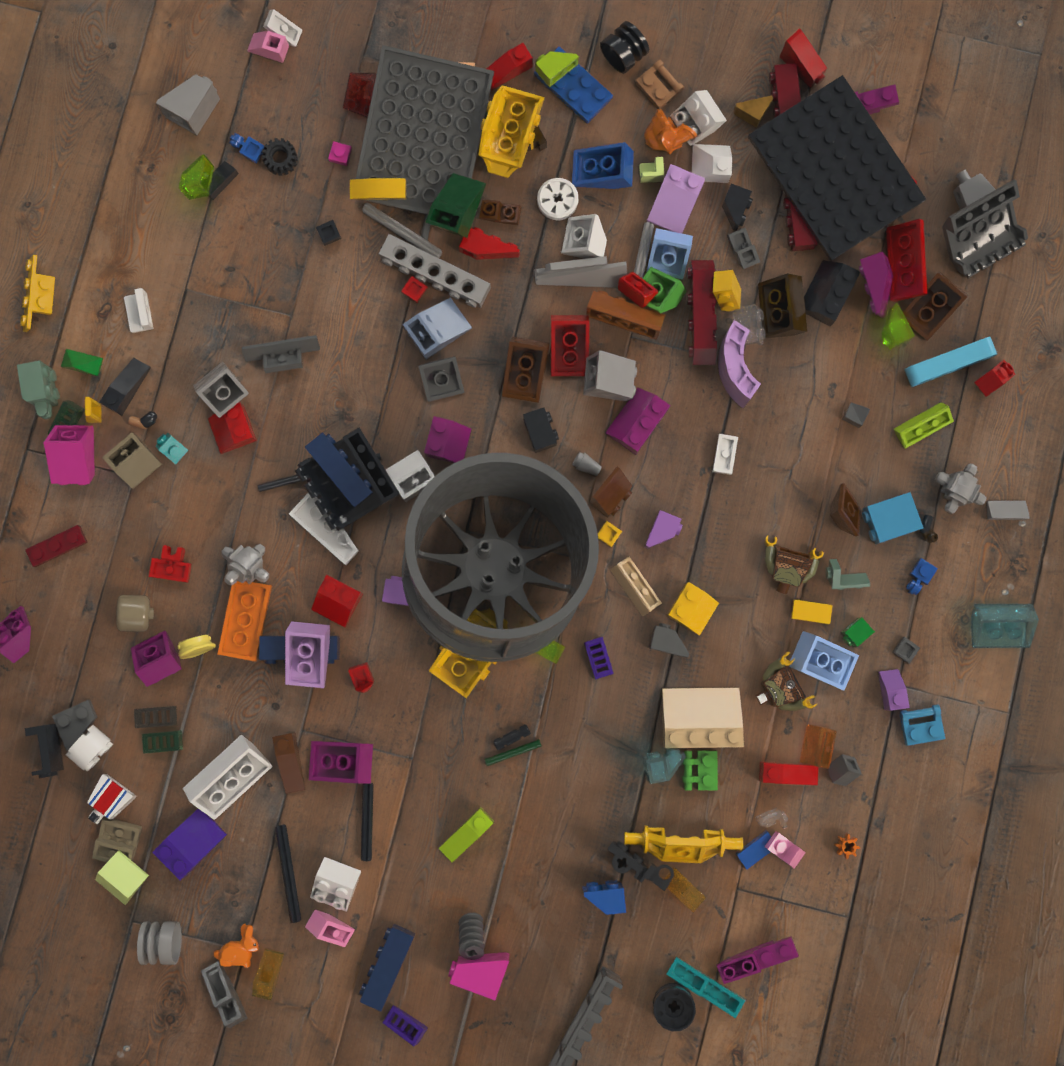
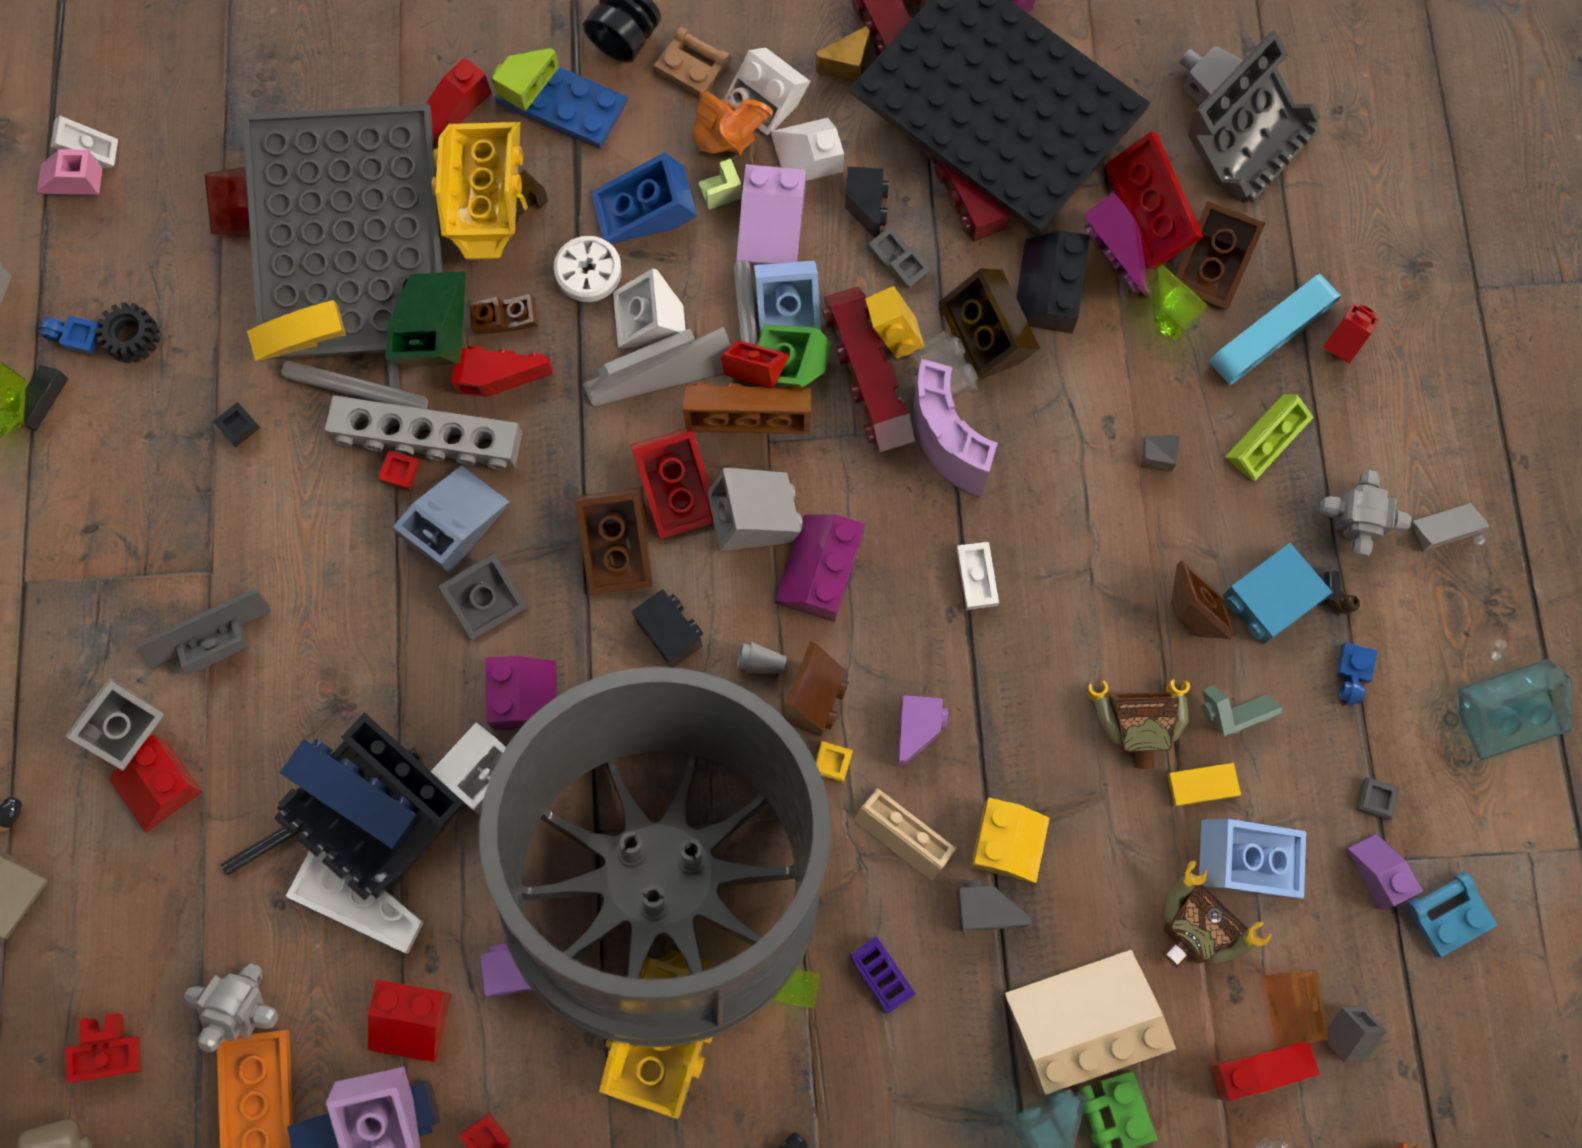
camera: 15 degrees left, 10 degrees down
(171, 447) = (56, 848): teal bracket -> none
(340, 153) = (224, 301): dark pink plate -> none
(857, 632) = (1290, 794): green brick -> none

